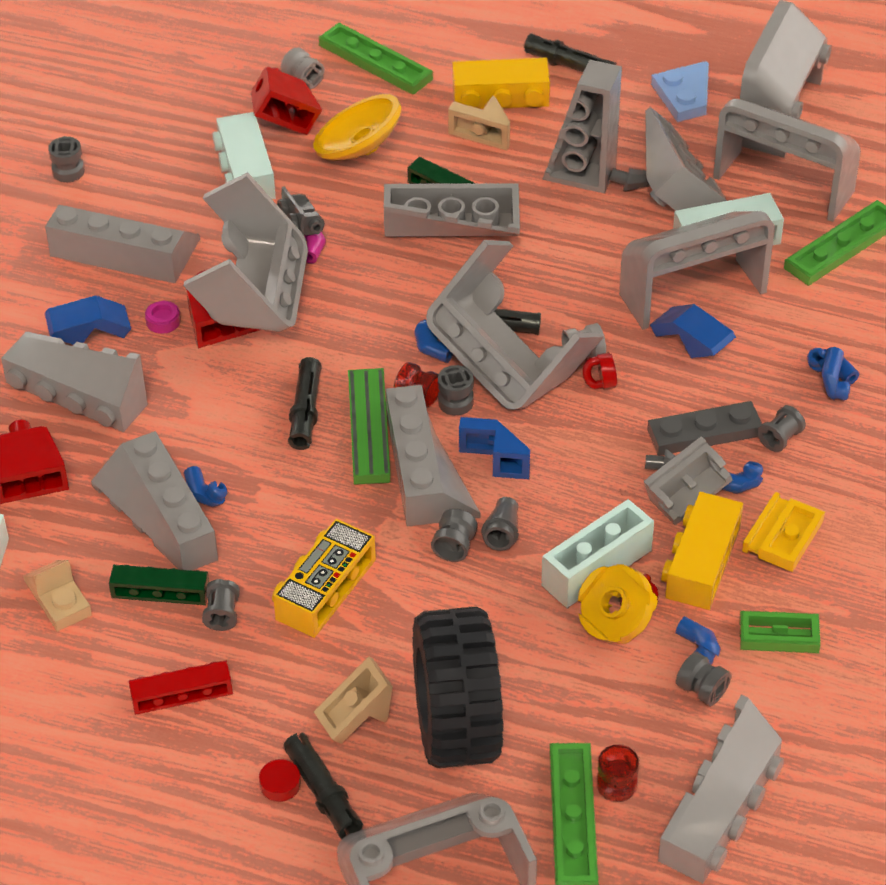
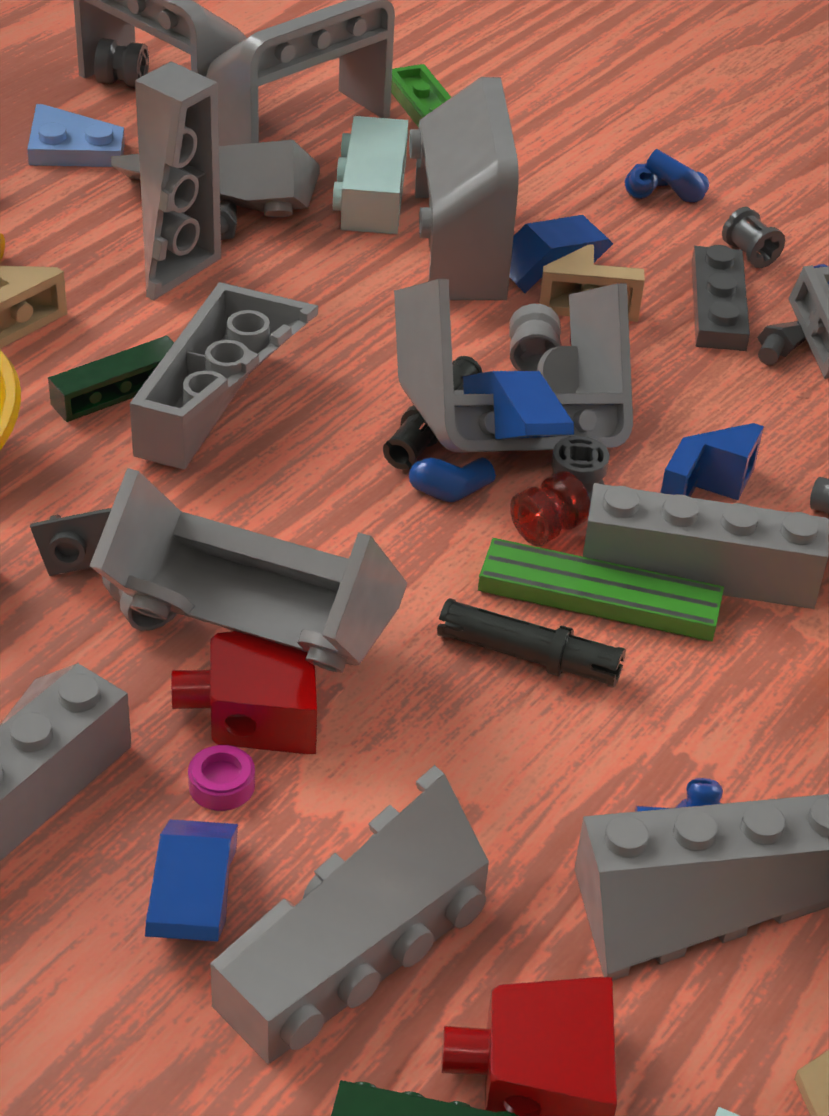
camera: 75 degrees left, 5 degrees down
(469, 333) = (522, 404): none -> blue slope
(661, 355) = (578, 273): none -> tan slope

